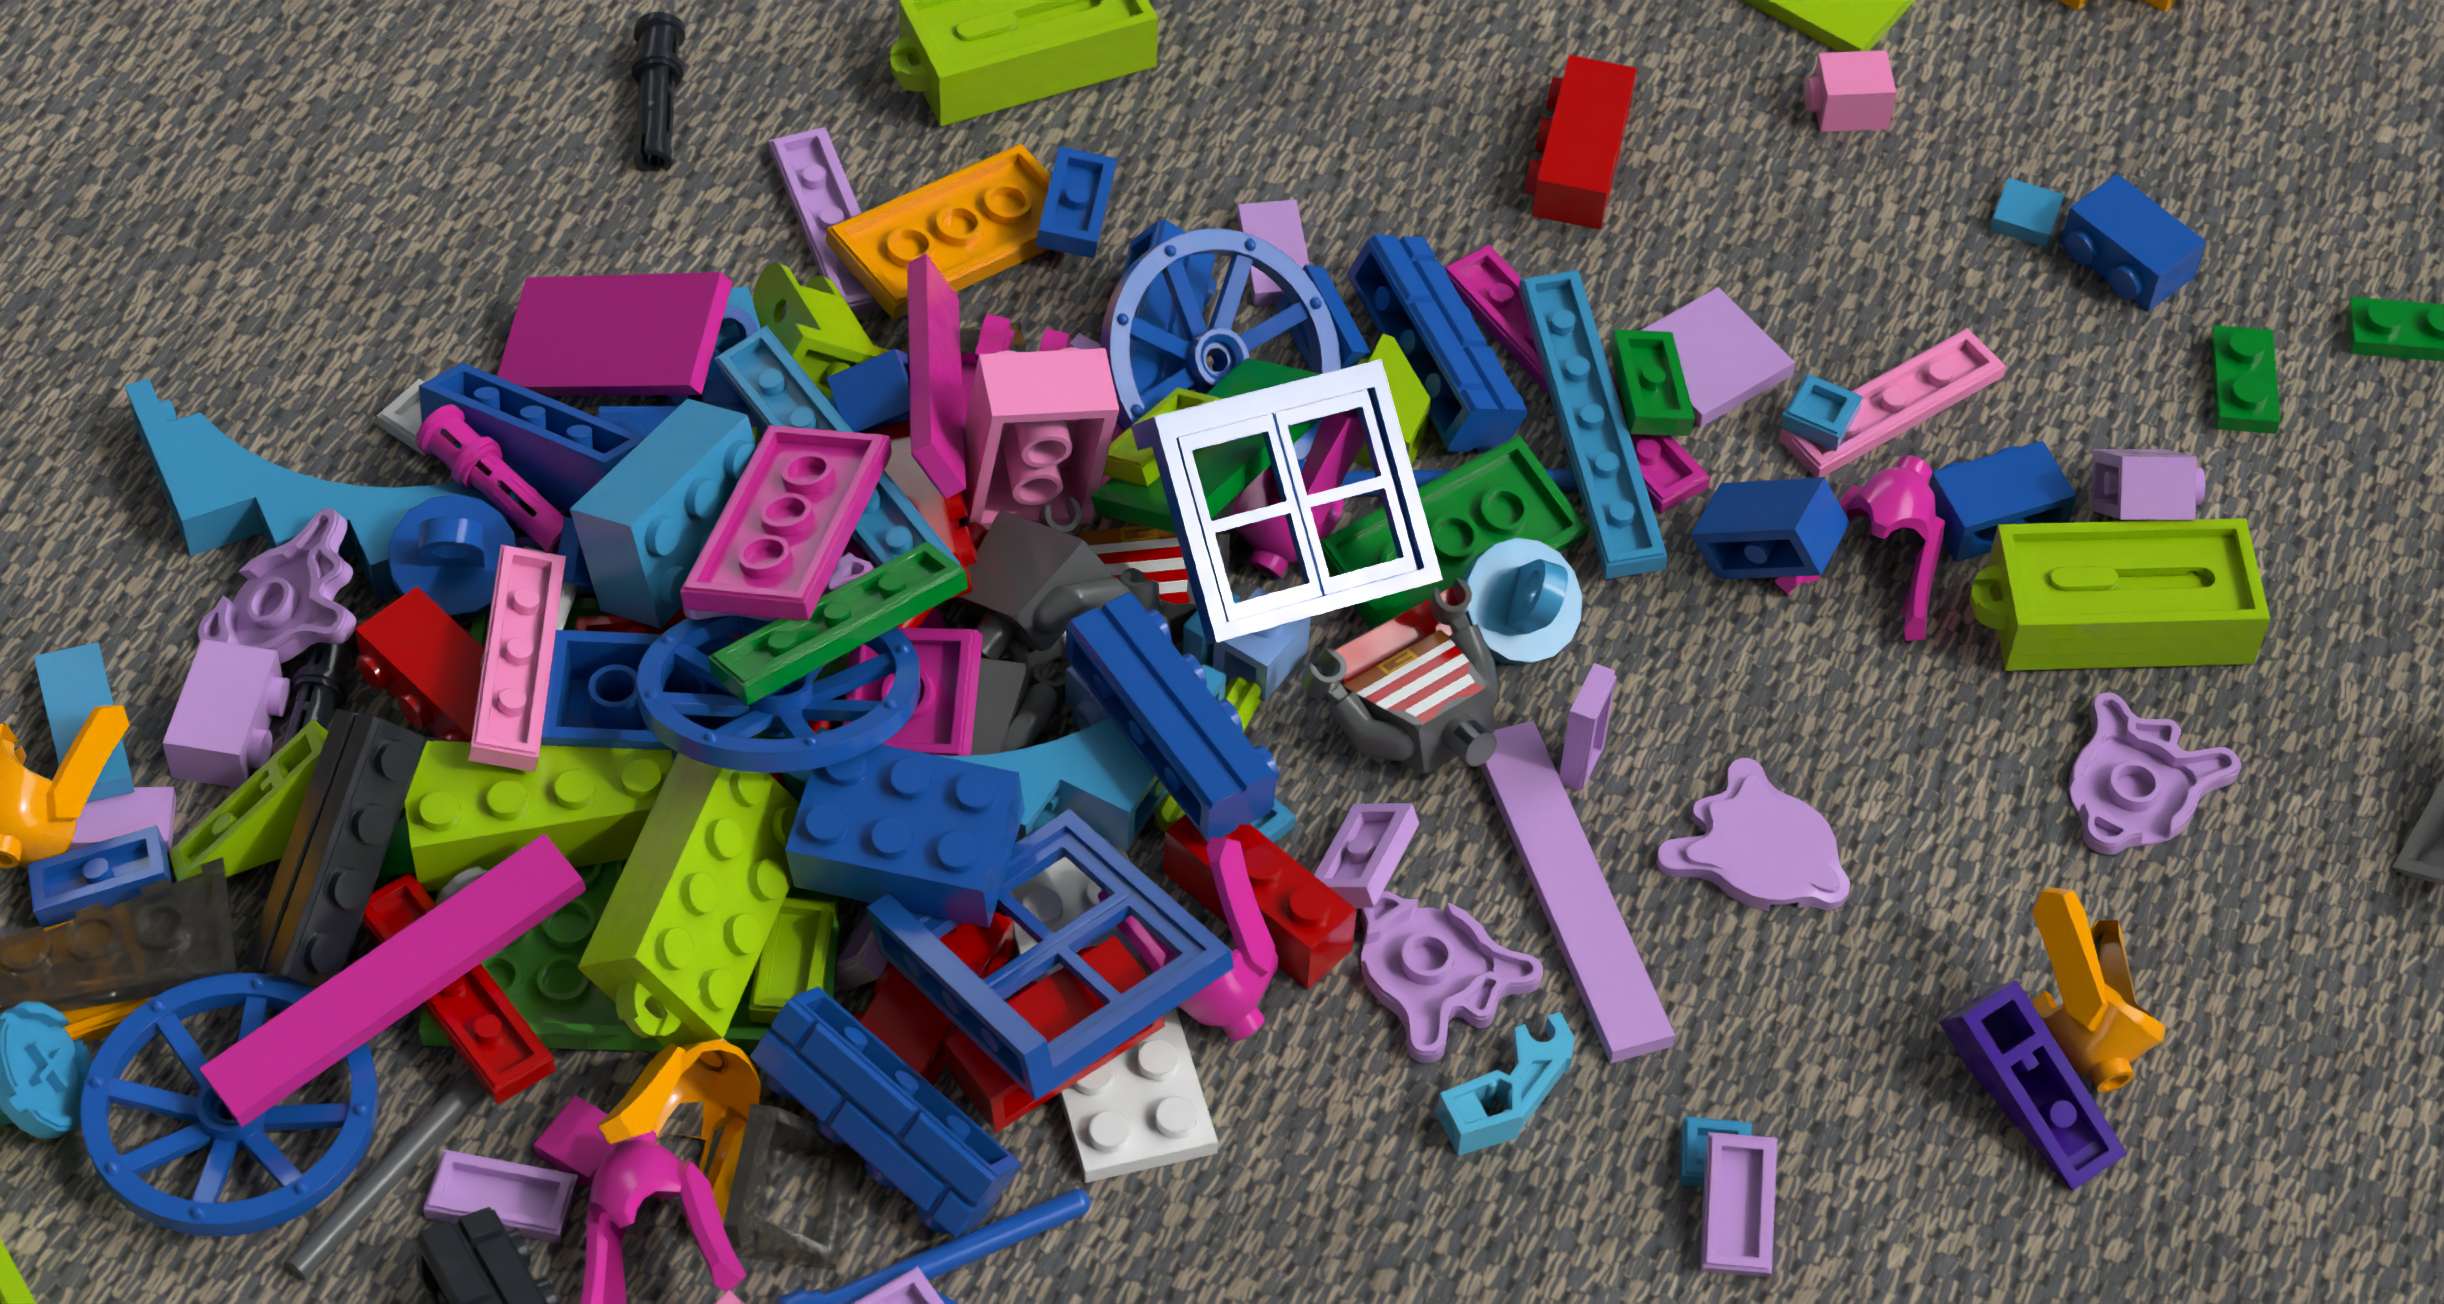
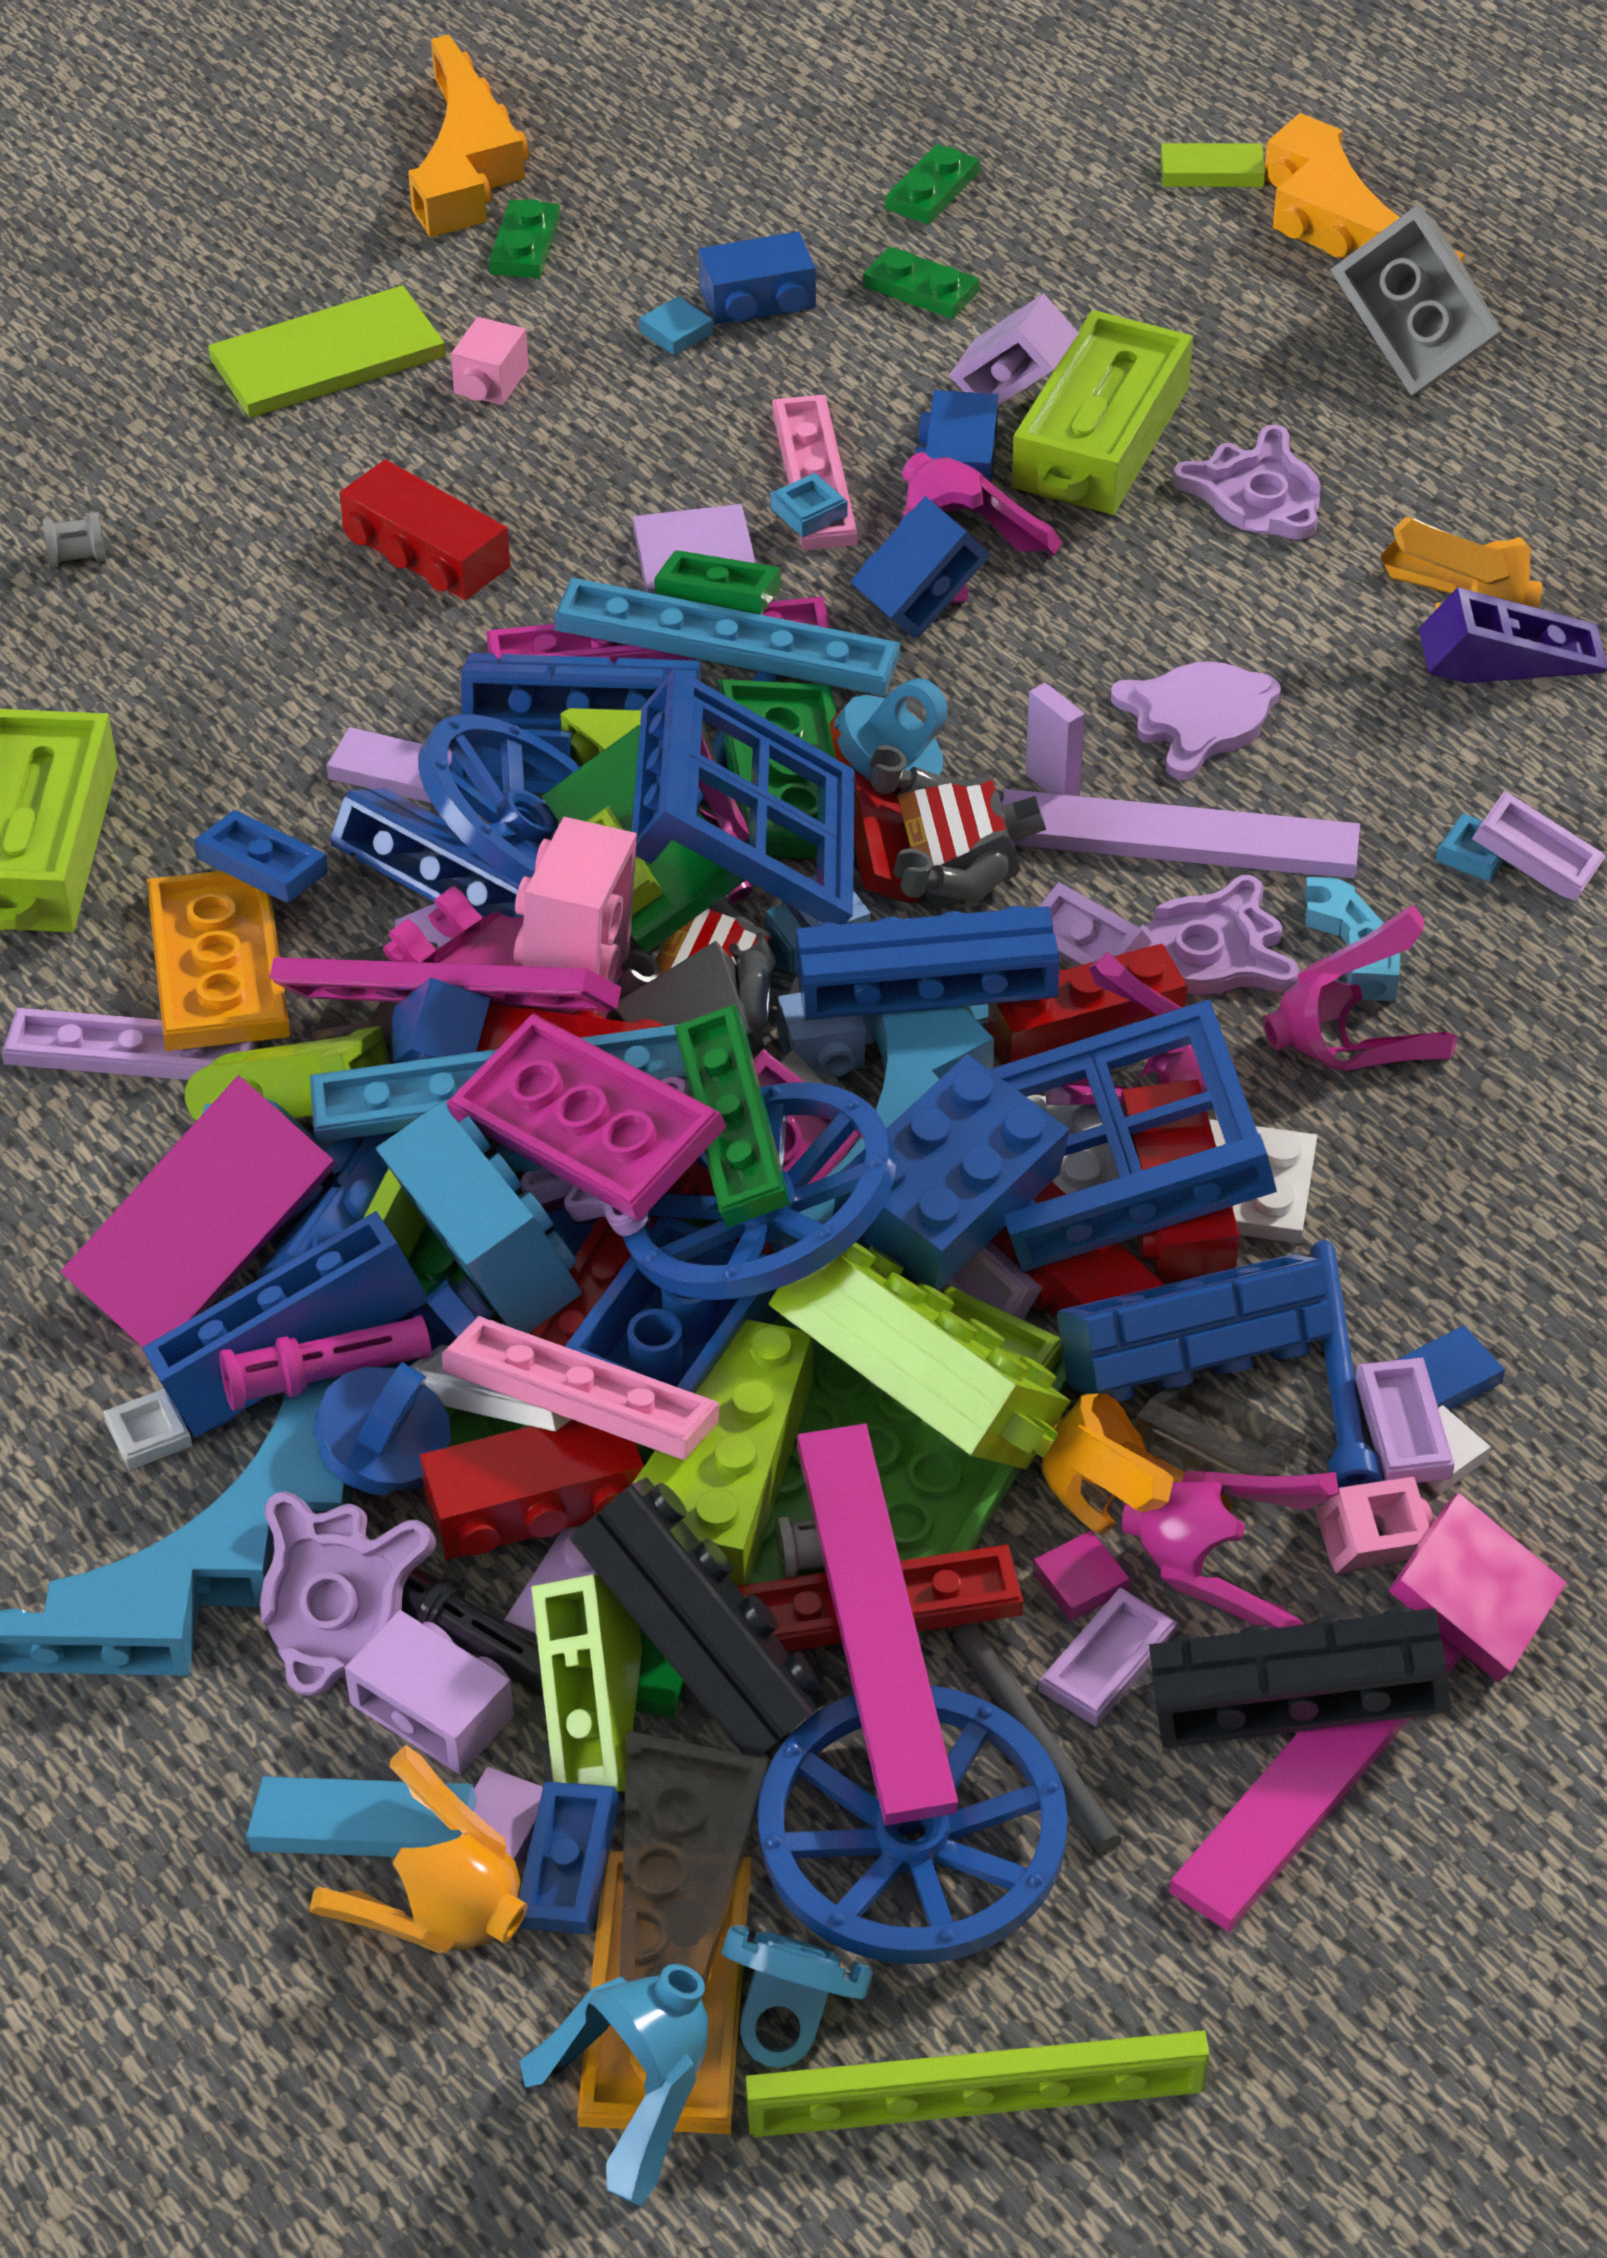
camera: 60 degrees left, 5 degrees down
(1395, 1074) = (1323, 999): none -> dark pink piece
(2067, 47) = (524, 238): none -> green plate

